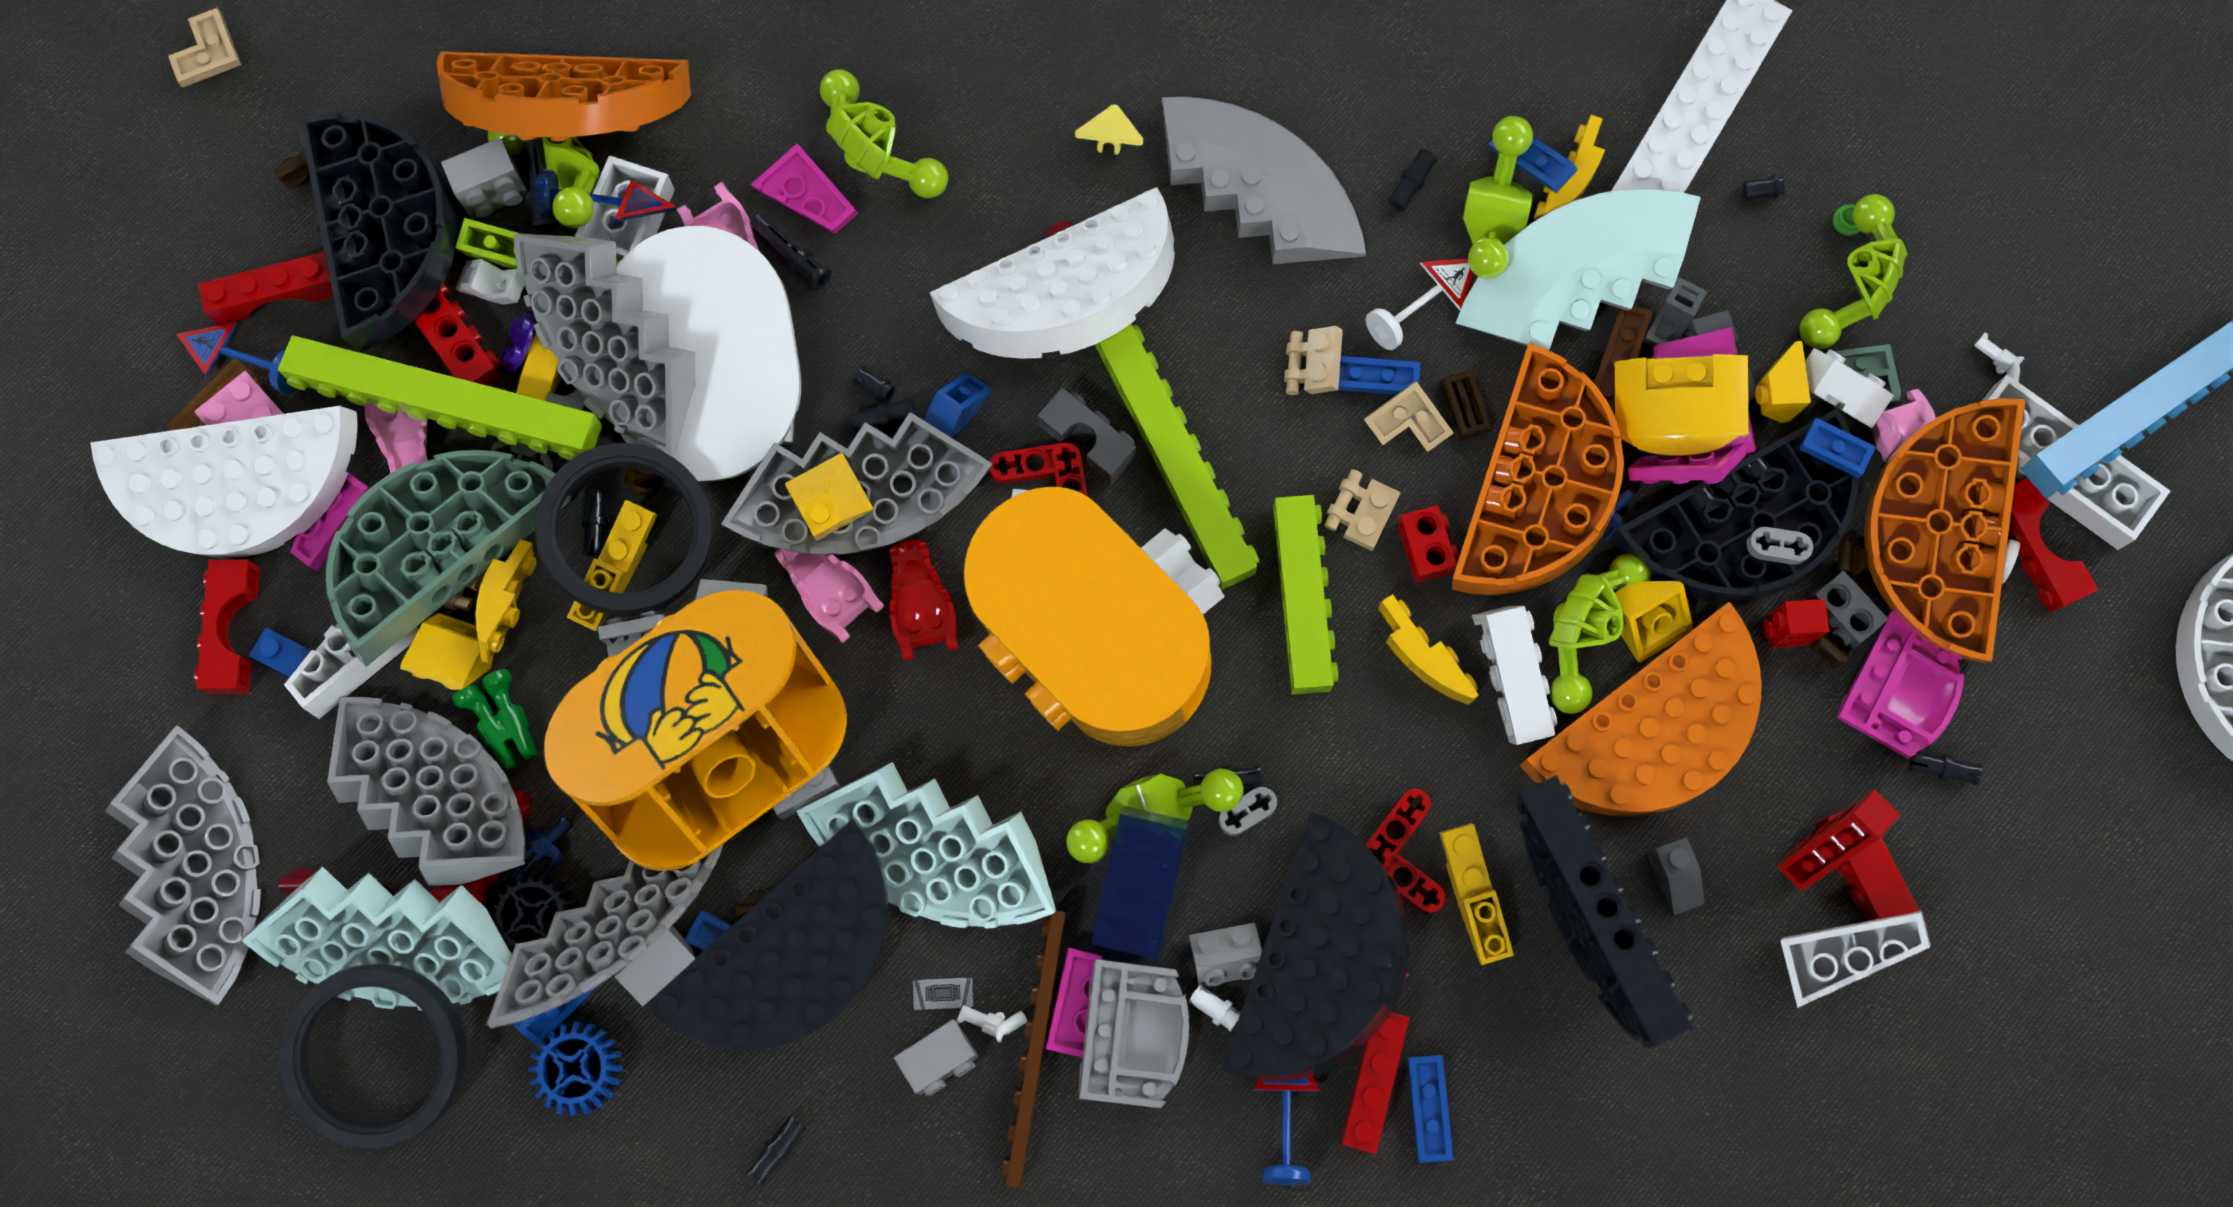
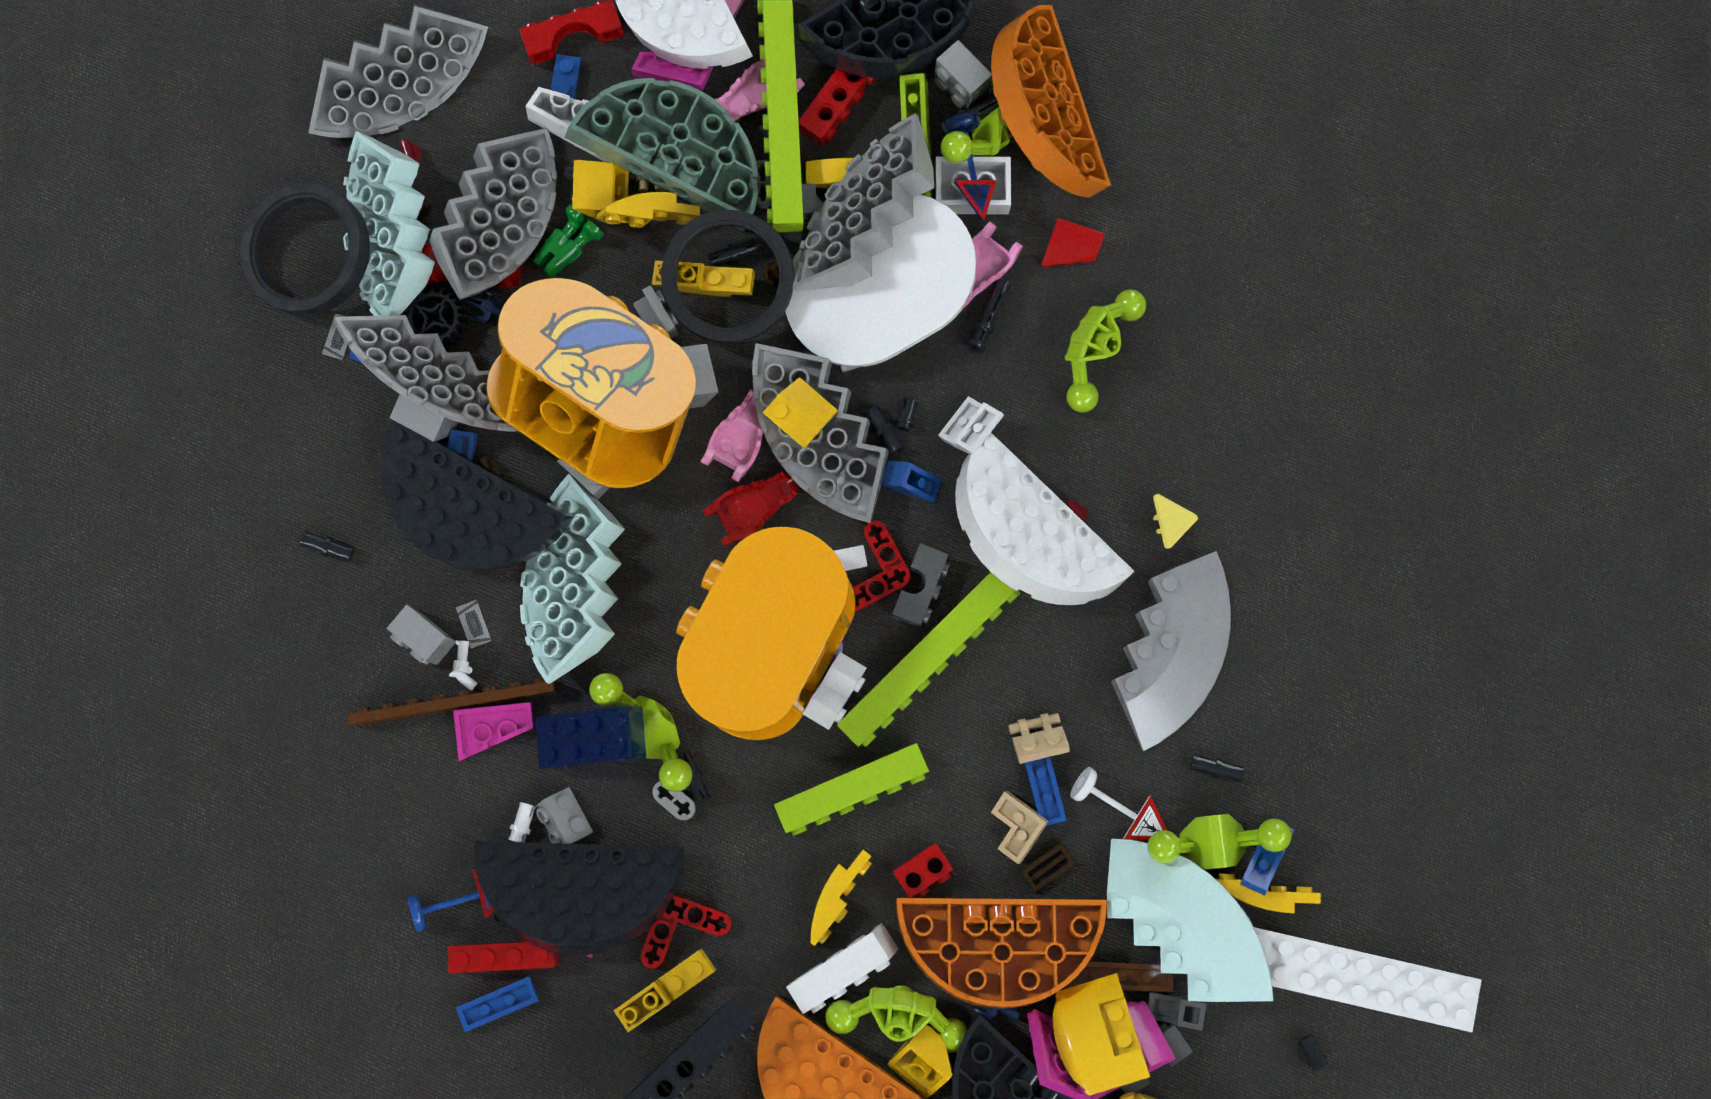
camera: 70 degrees right, 5 degrees up
(490, 282) = (887, 109): white slope -> none
(504, 1053) = (335, 344): none -> sticker
(523, 336) = (837, 149): dark purple dish -> none
(566, 1080) = (344, 368): blue gear -> none
(740, 130) = (1072, 244): none -> red slope
(806, 190) = (1042, 309): dark pink wing -> none
(916, 312) = (970, 425): none -> white slope
(1133, 1034) = (481, 769): light grey slope -> none
(1371, 515) = (933, 820): tan plate -> none

